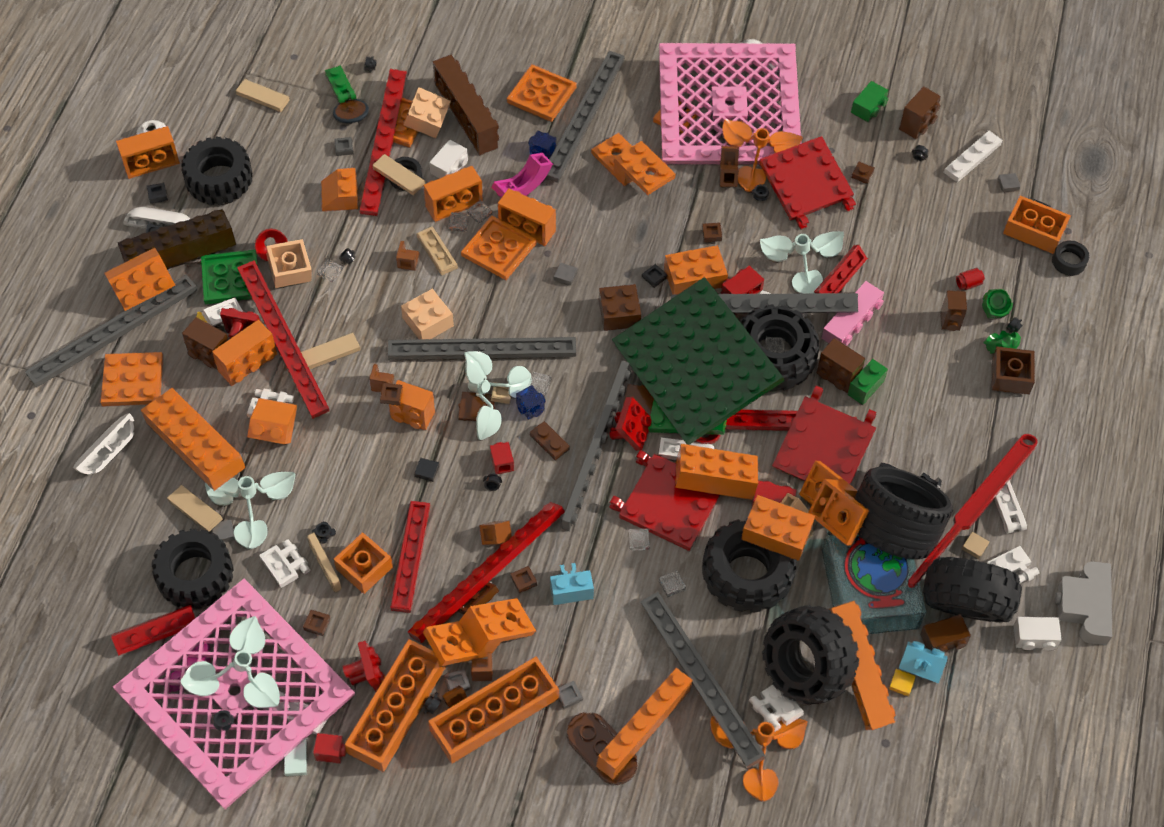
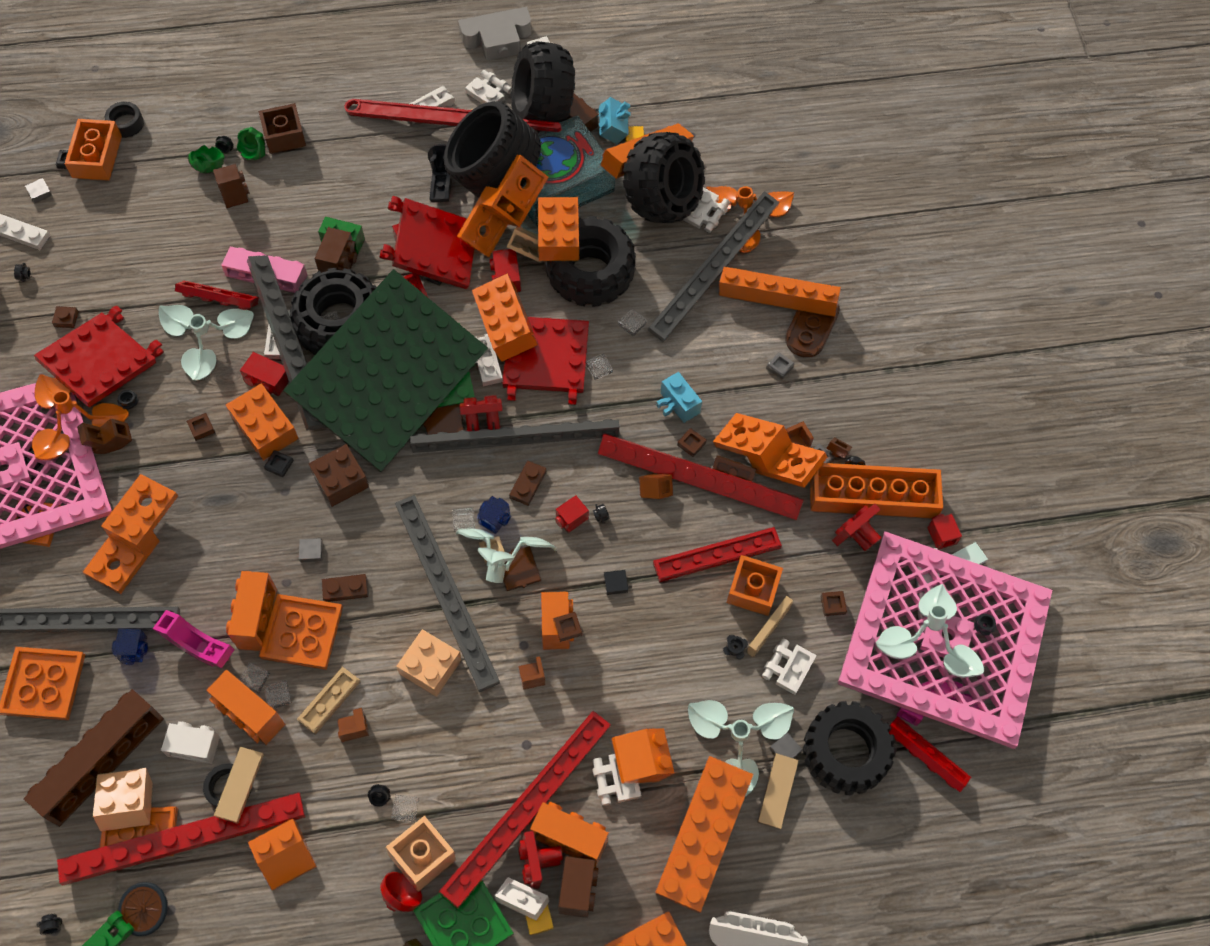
camera: 115 degrees left, 5 degrees up
(331, 351) = (515, 750): tan tile -> none
(343, 146) = (204, 890): dark grey tile -> none
(493, 709) = (833, 409): orange brick -> none
(521, 286) = (344, 588): none -> reddish brown plate
(970, 279) = (180, 189): red brick -> none

